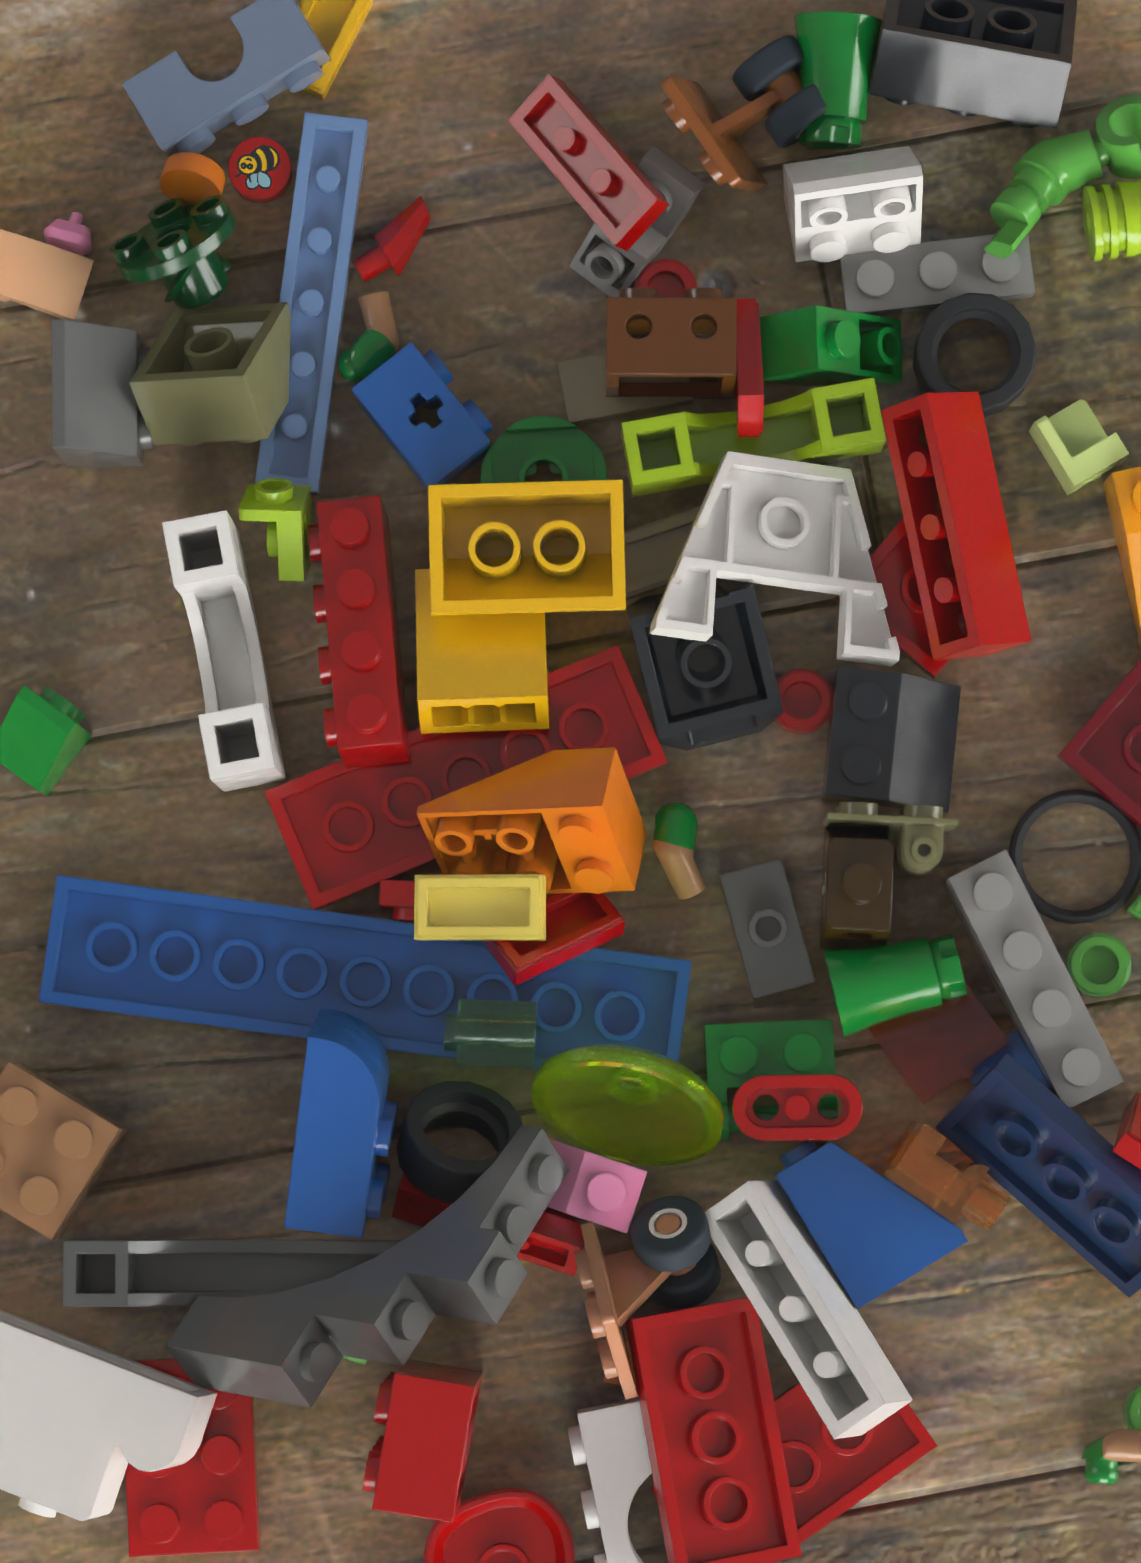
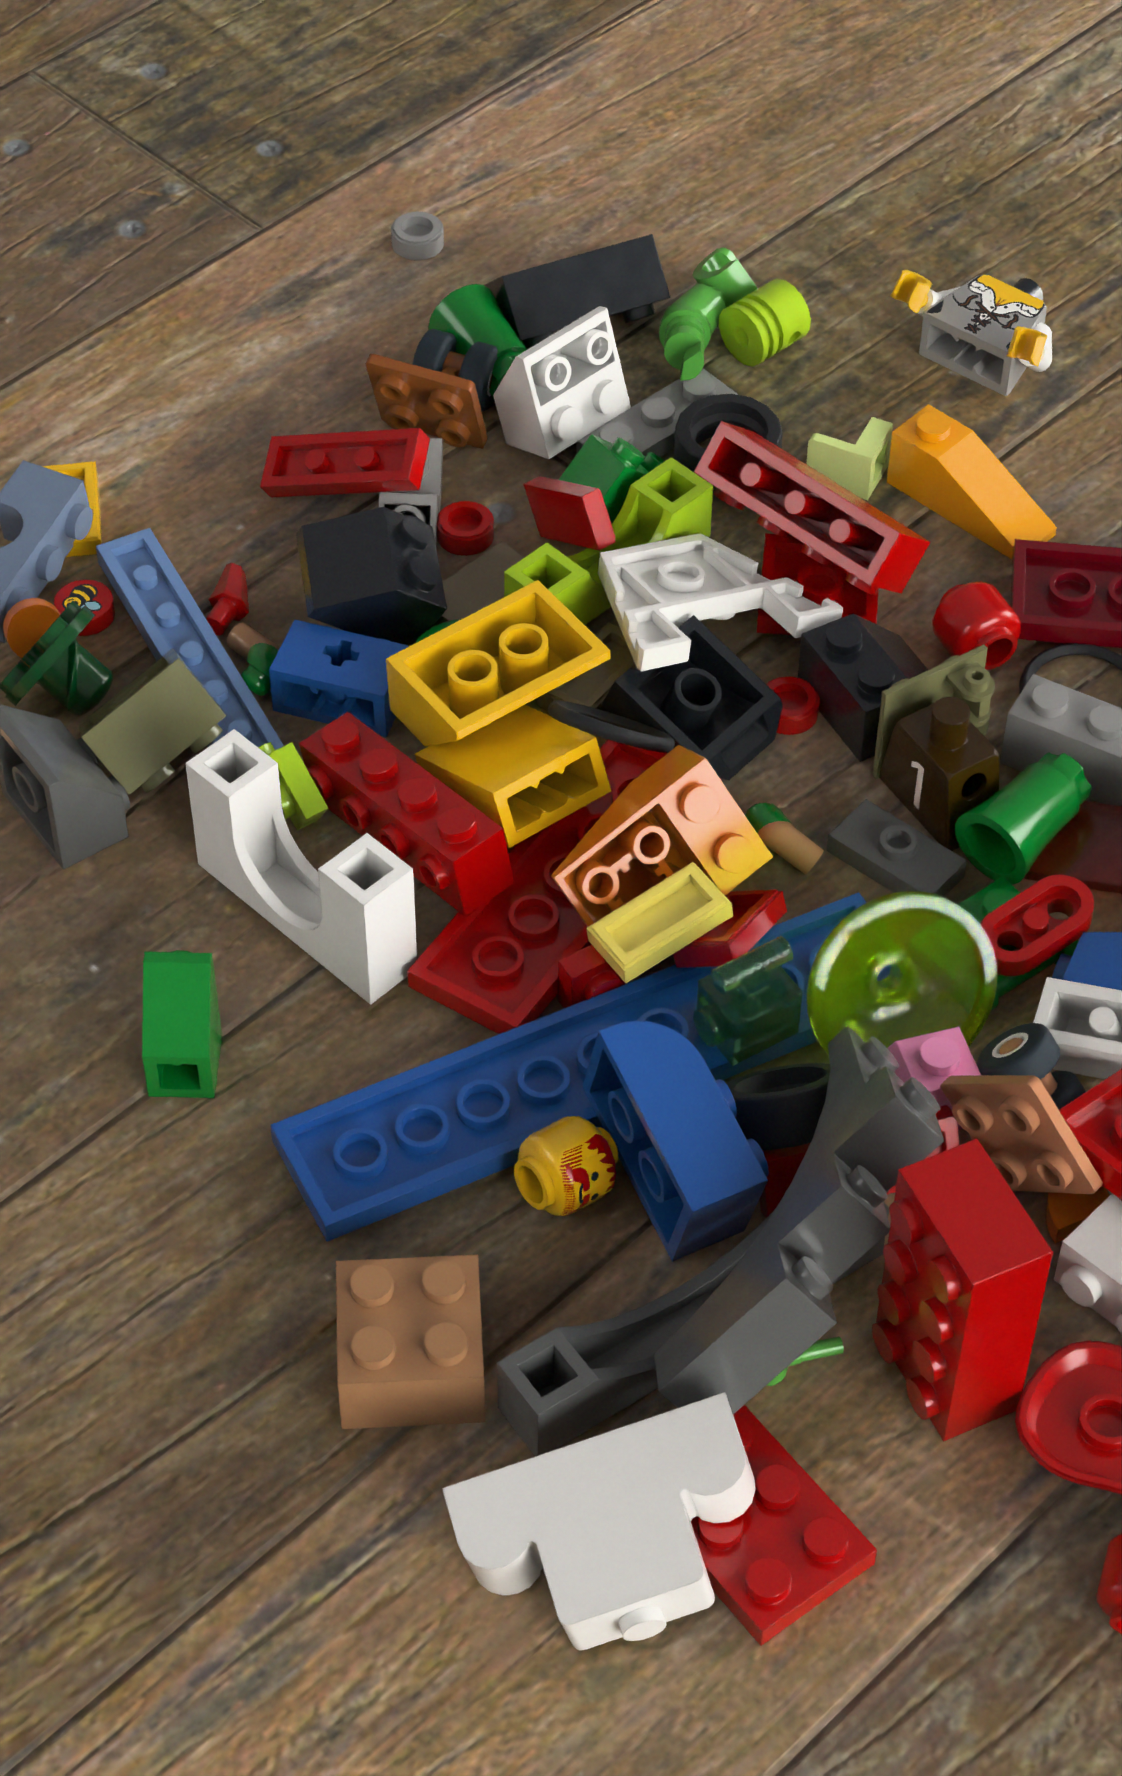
camera: 40 degrees left, 35 degrees down
(260, 1070) = (566, 1166): none -> yellow head
(515, 329) = (372, 574): none -> black slope
(554, 695) = (611, 726): none -> black tyre
(671, 343) = (495, 499): reddish brown piece -> none
(1024, 736) = (975, 617): none -> red head

